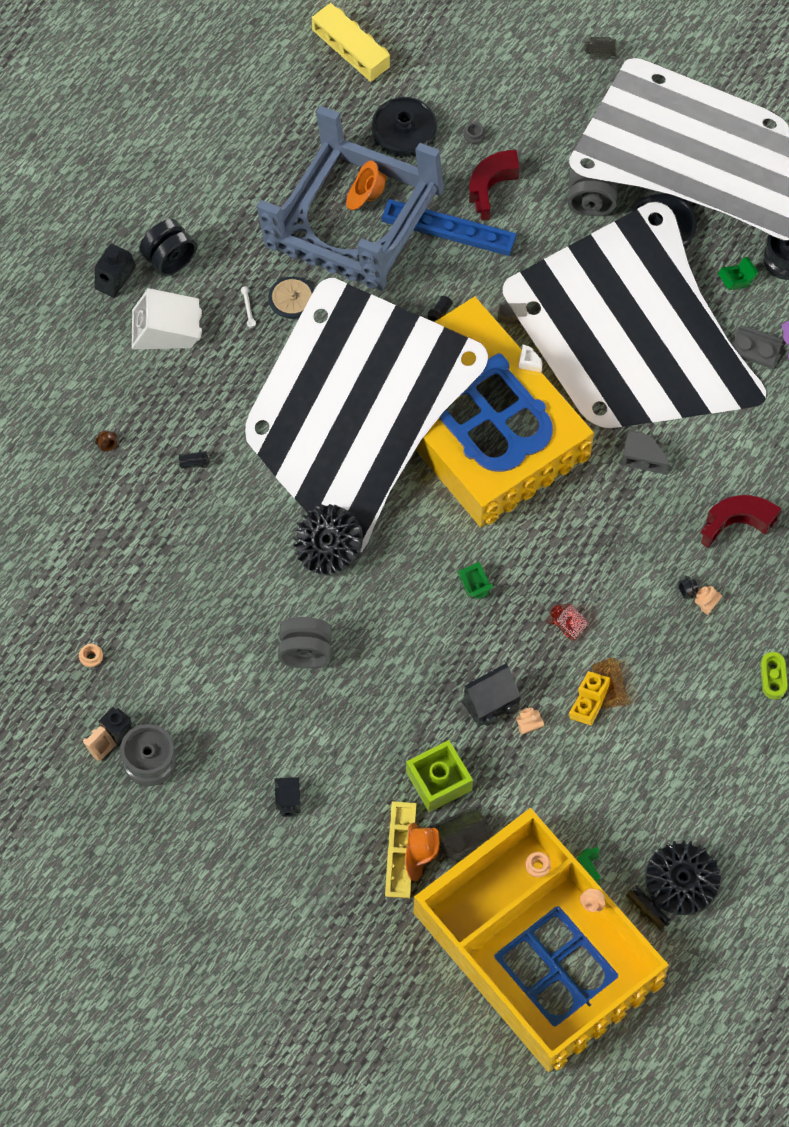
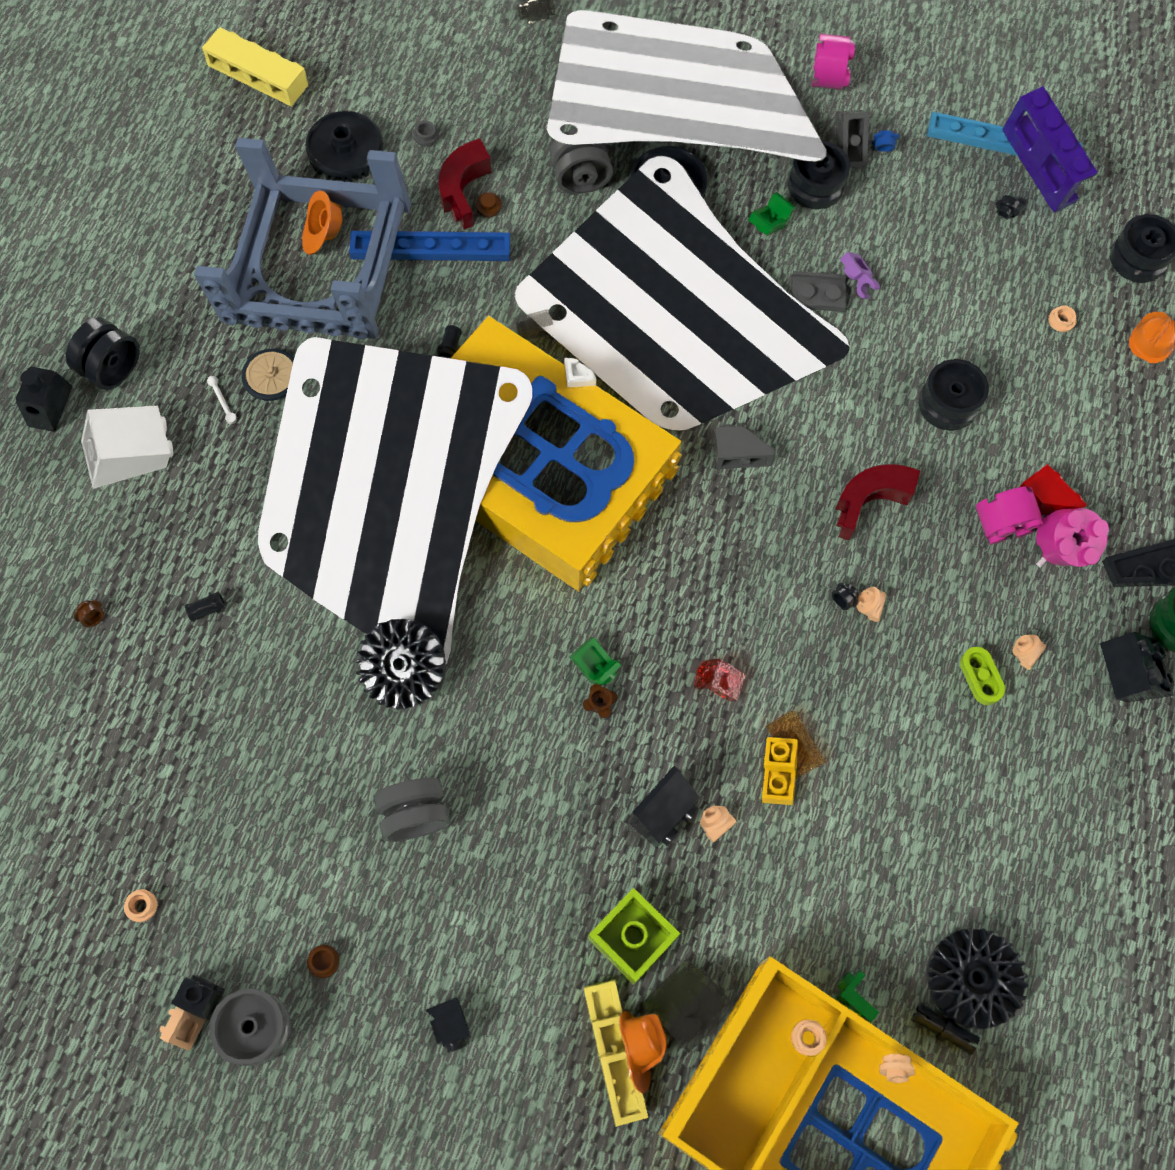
camera: 20 degrees left, 5 degrees up
(210, 730) = (323, 961): none -> reddish brown plate
(471, 604) = (598, 692): none -> reddish brown plate
(507, 205) = (488, 204): none -> reddish brown plate

